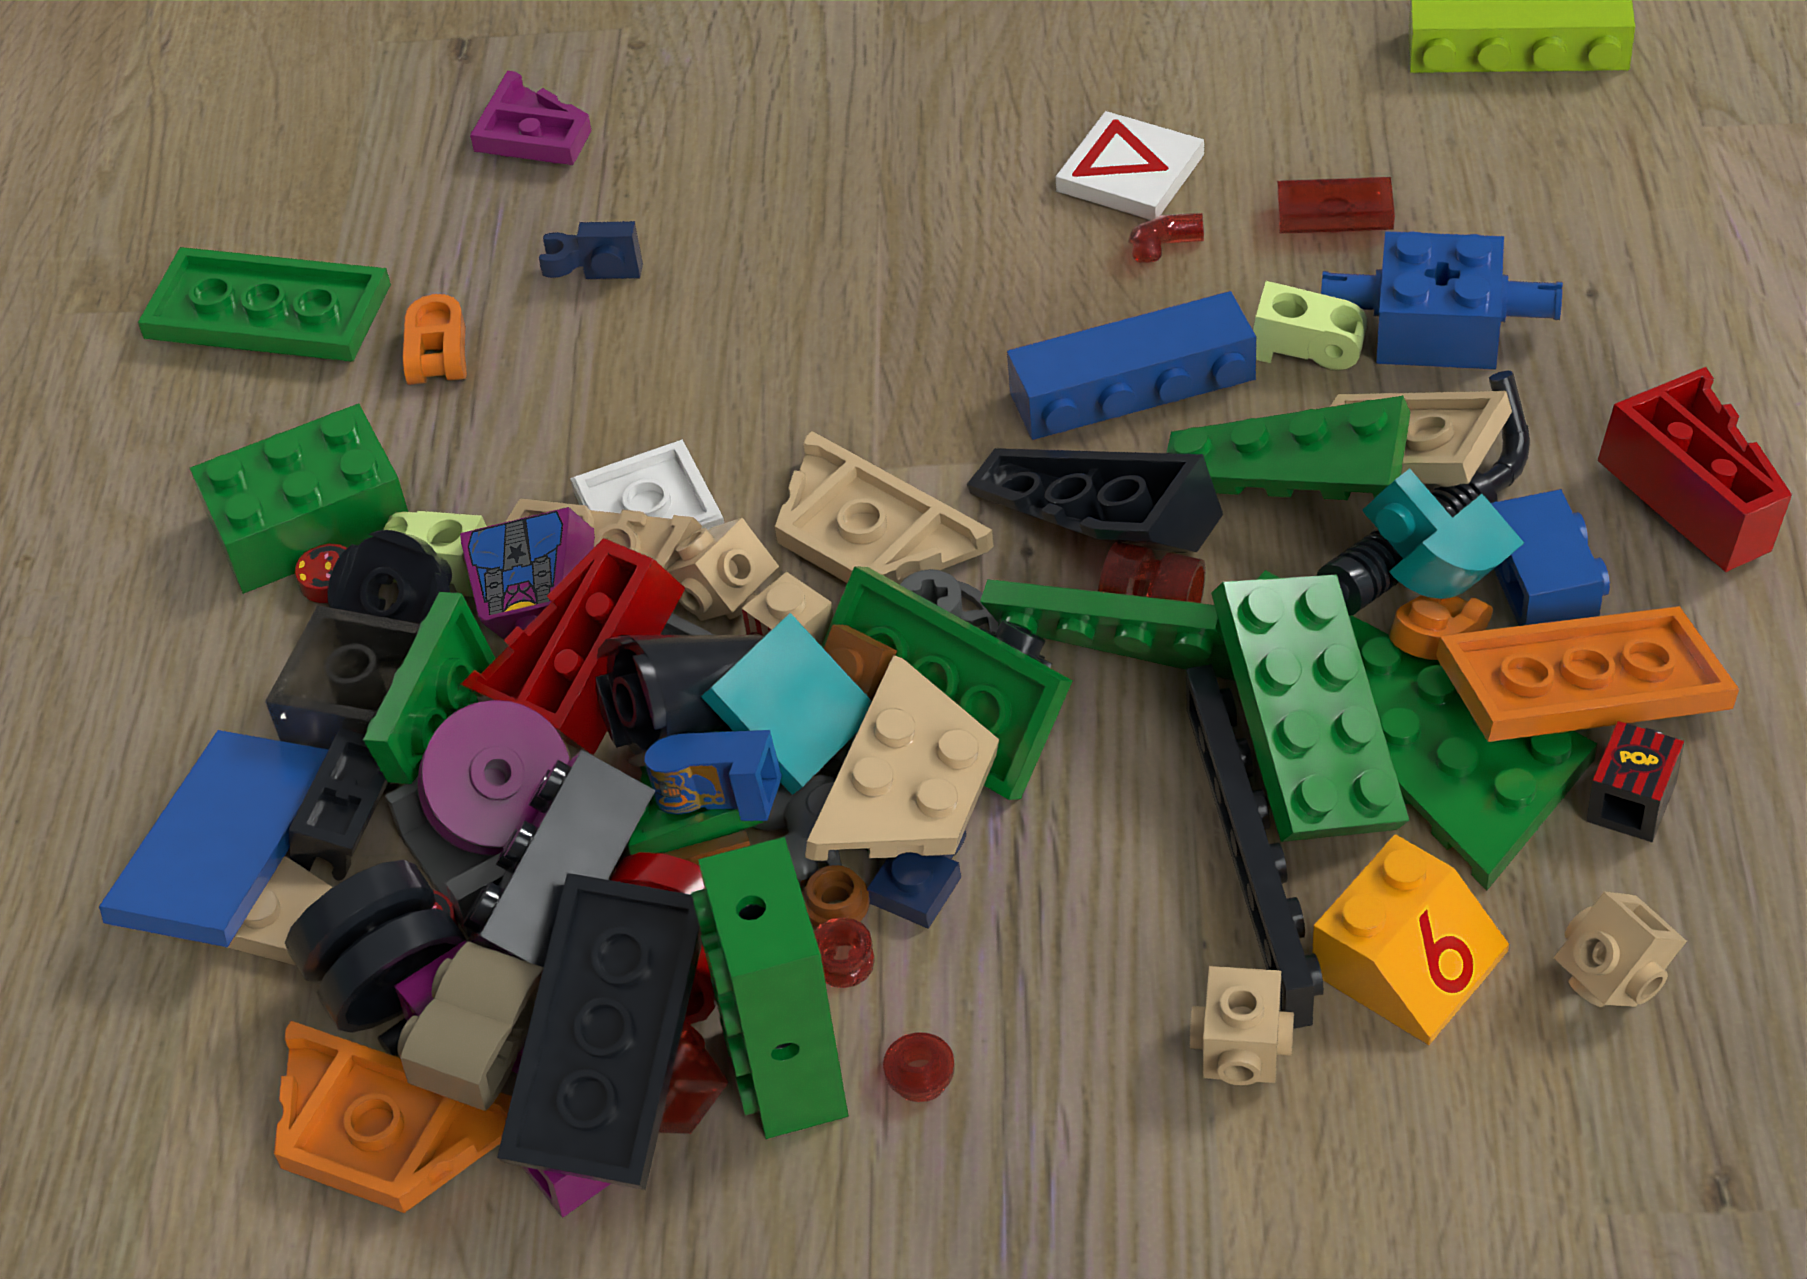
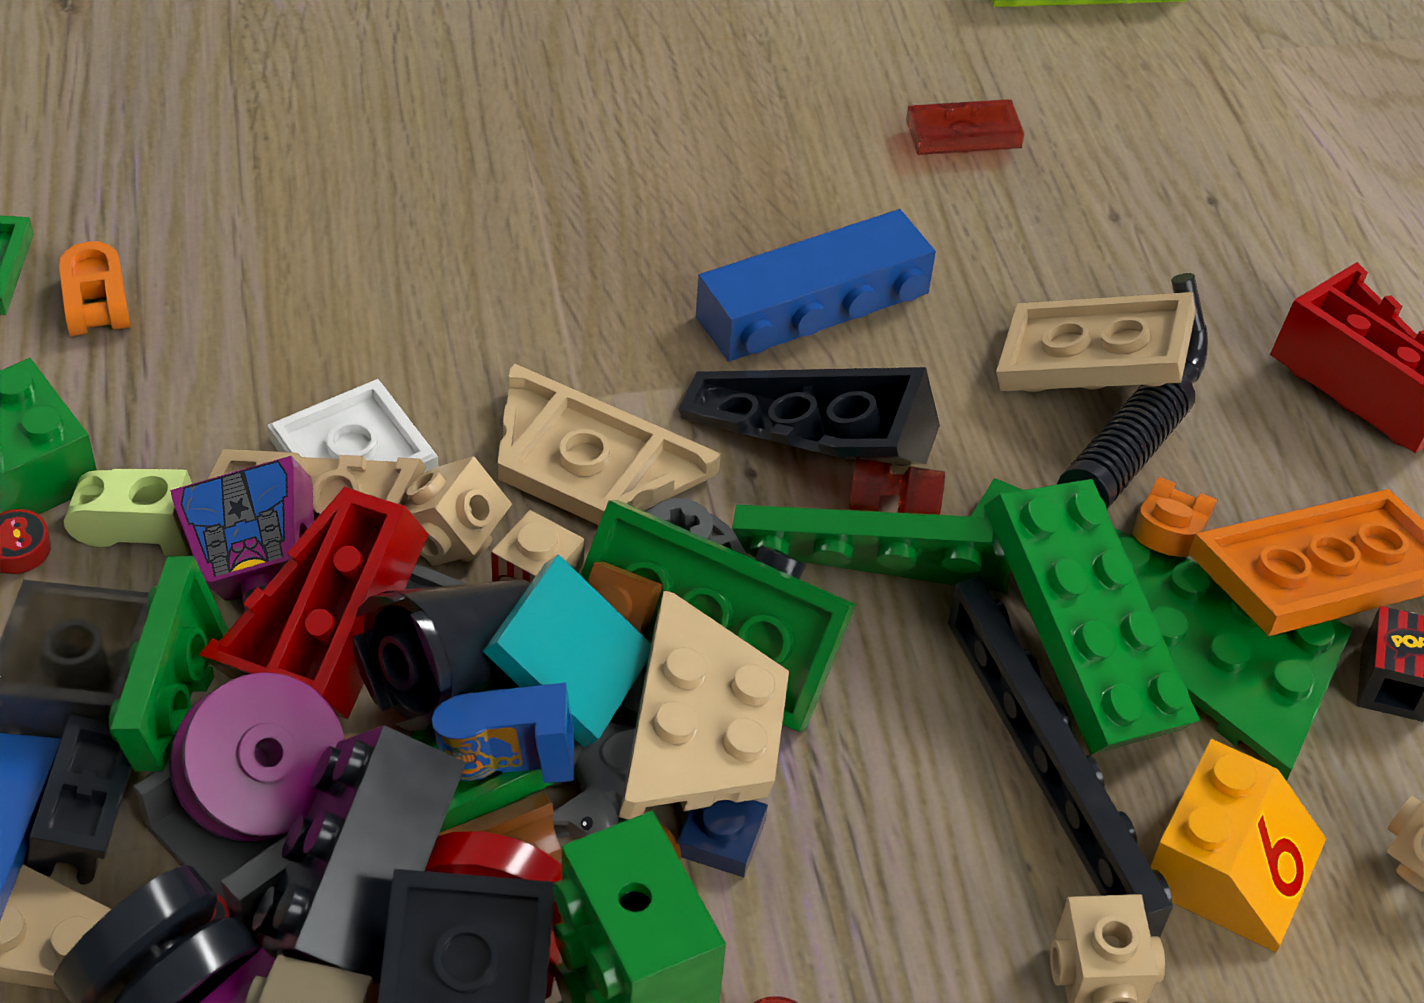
camera: 20 degrees left, 0 degrees up
(379, 561) = (78, 525): black plate -> none
(530, 125) = (156, 71): magenta wing -> none
(601, 248) = (256, 190): dark blue plate -> none
(1130, 165) = (761, 96): white tile -> none
(1164, 230) = (812, 154): clear red arm -> none
(1308, 327) = (975, 240): yellowish green leg -> none
(1312, 449) = (1024, 356): green wing -> none
(1438, 551) = (1171, 443): teal brick -> none
(1443, 299) = (1090, 210): blue brick -> none
(1554, 569) = (1253, 453): blue brick -> none

